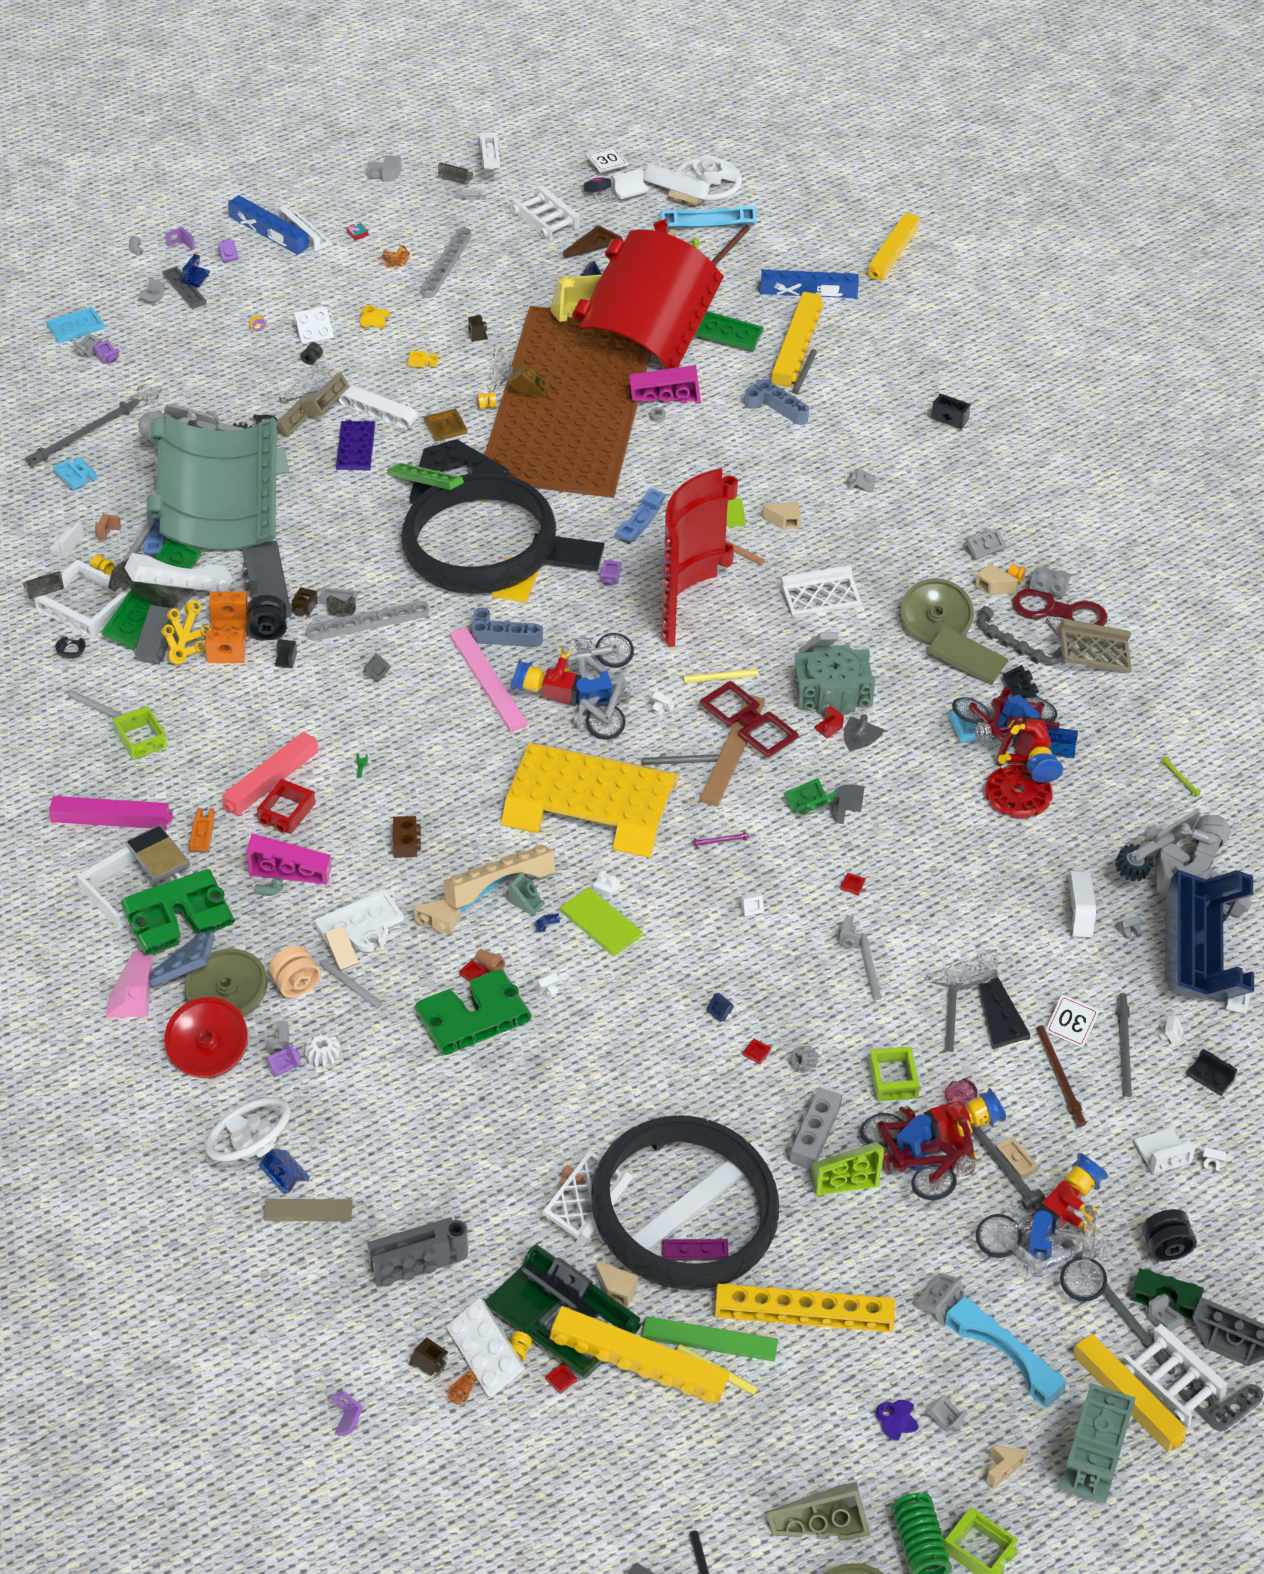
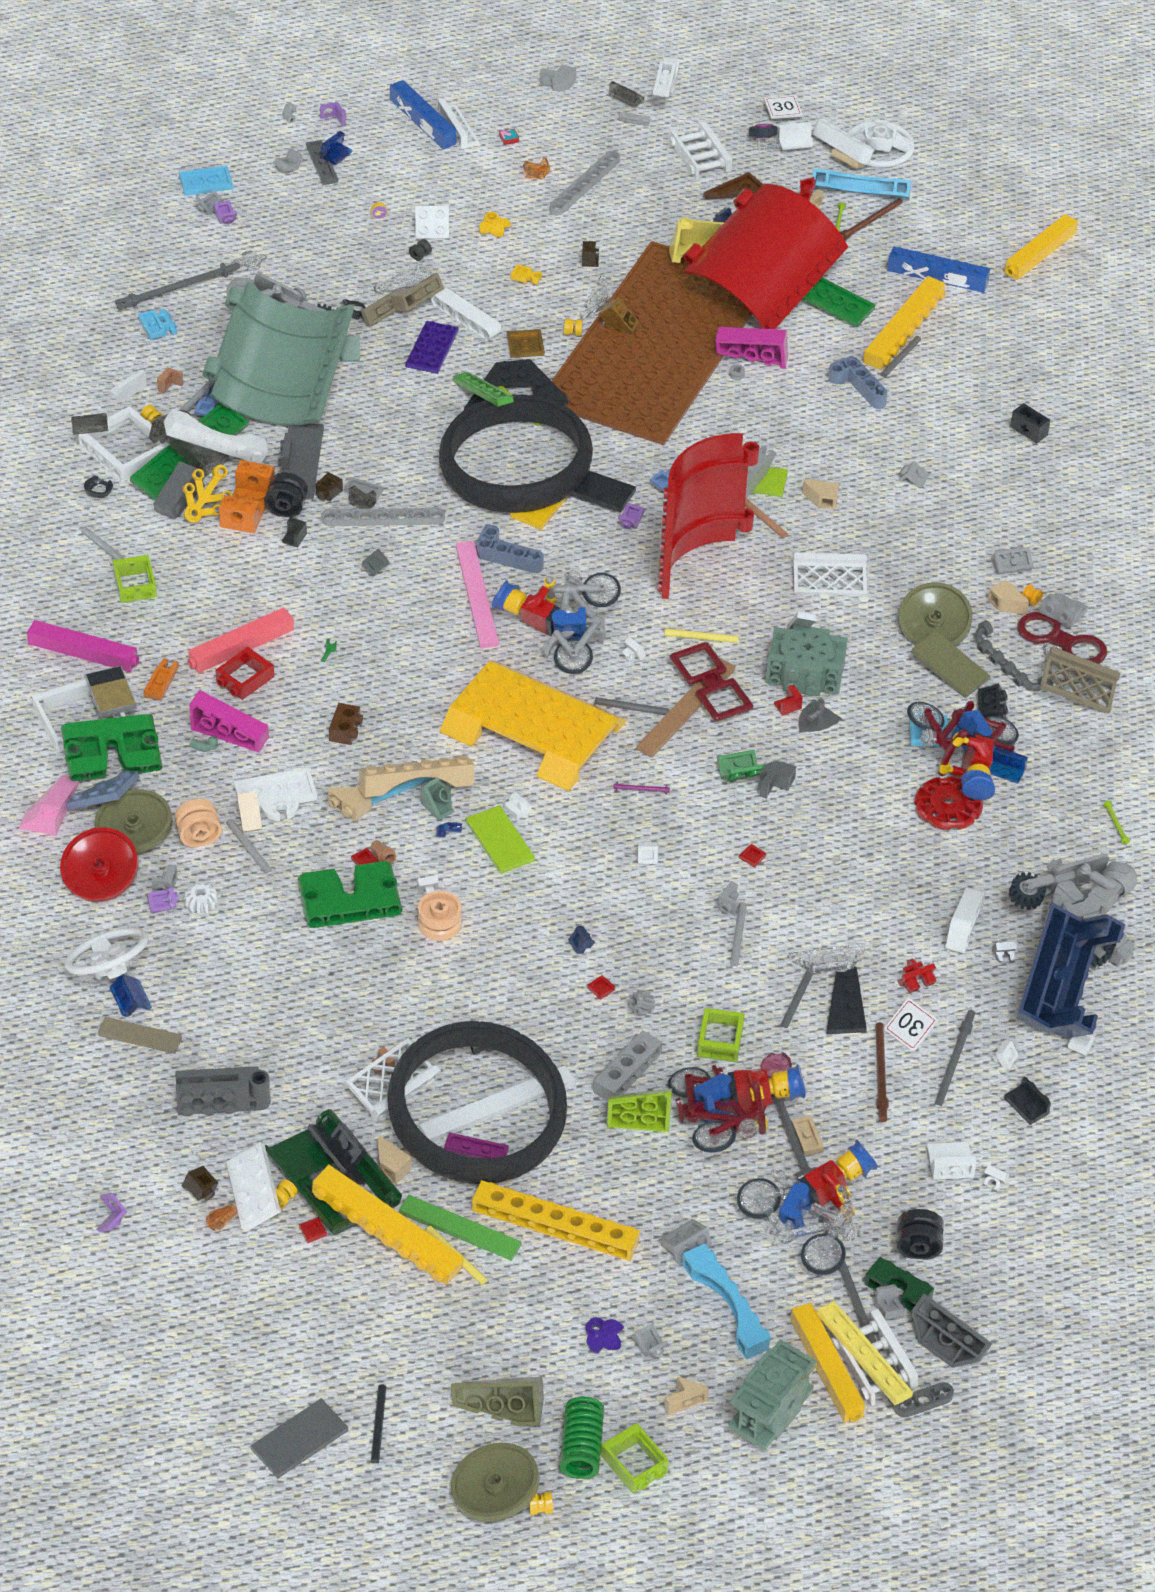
camera: 15 degrees right, 0 degrees up
(228, 250) = (375, 133): medium lavender bracket -> none
(572, 1013) = (439, 915): none -> light nougat wheel
(1065, 966) = (915, 973): none -> red hips
(1166, 1374) = (864, 1353): none -> light yellow tile

